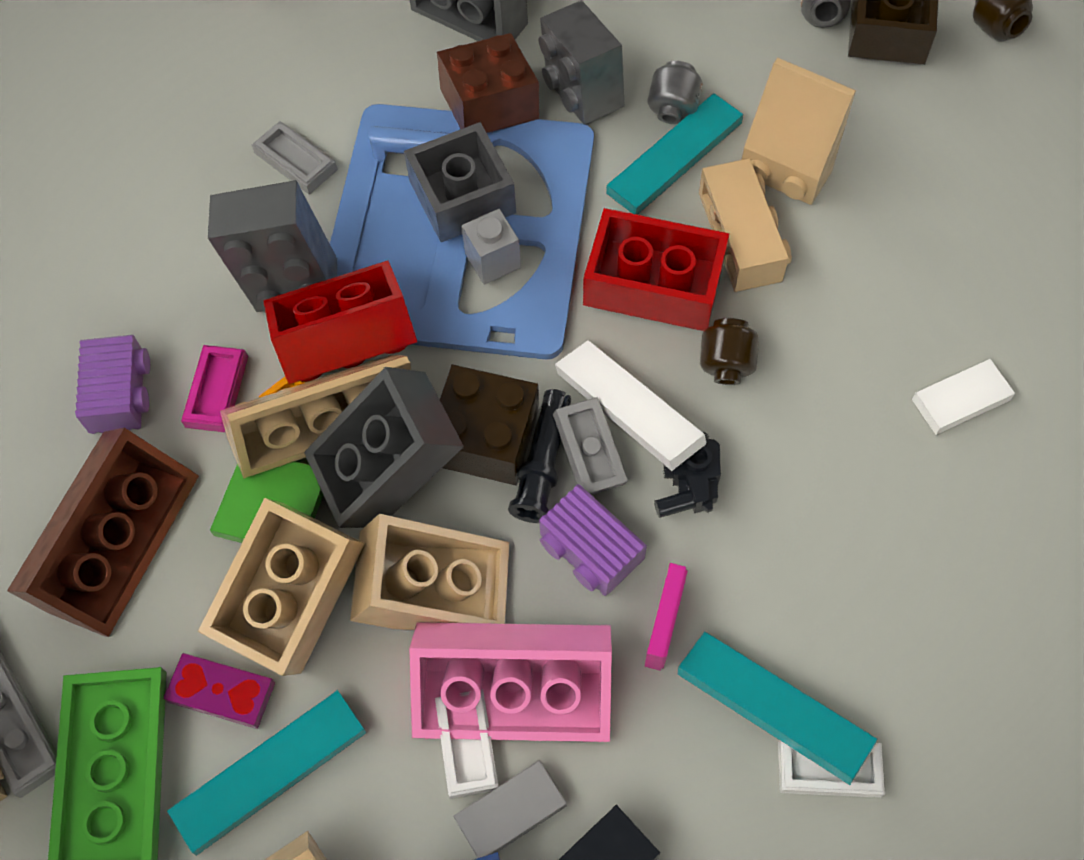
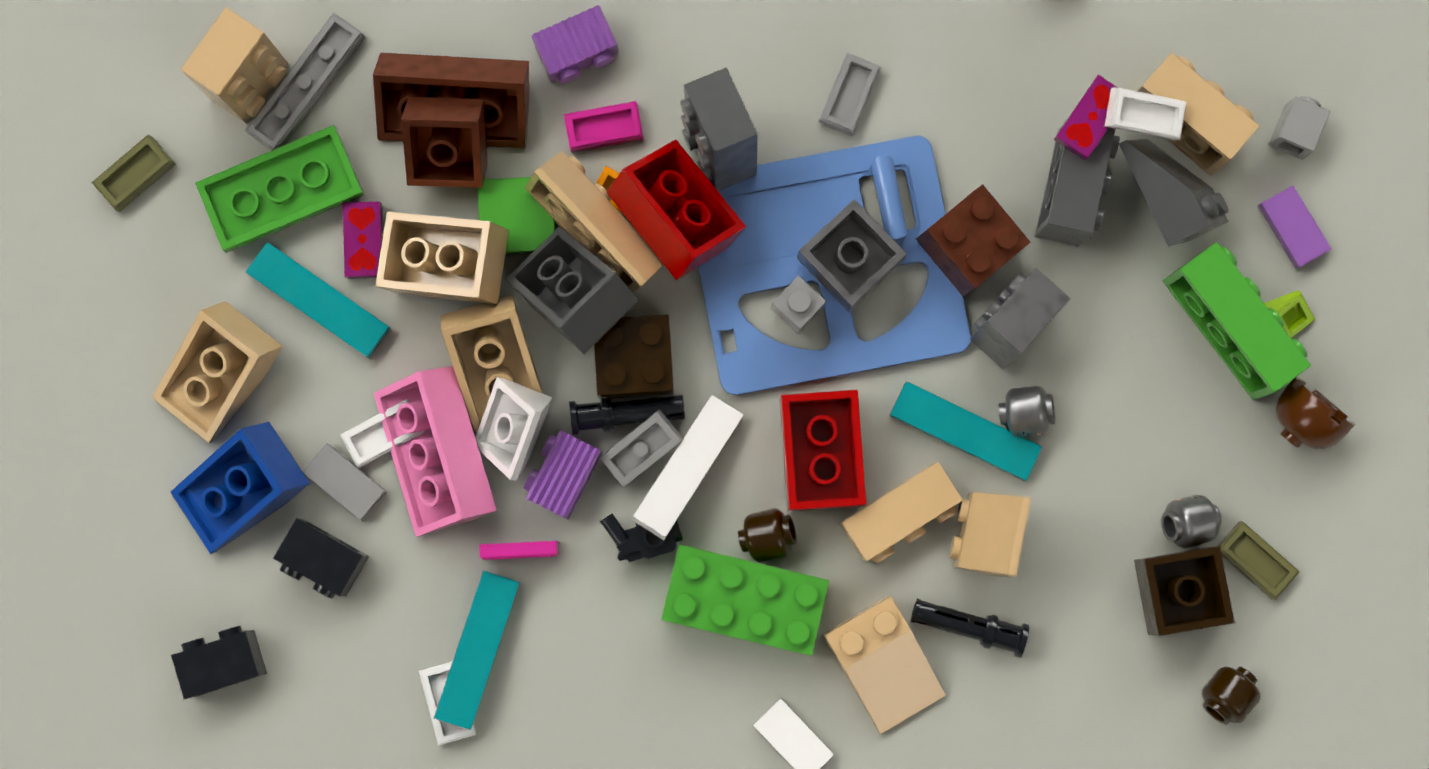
camera: 65 degrees right, 20 degrees up
(148, 541) = (444, 142): none -> copper brick
(516, 573) = (511, 426): none -> white slope
(795, 392) = (745, 600): none -> bright green brick
(887, 186) = (987, 630): none -> black pin
(895, 285) = (884, 664): none -> tan slope

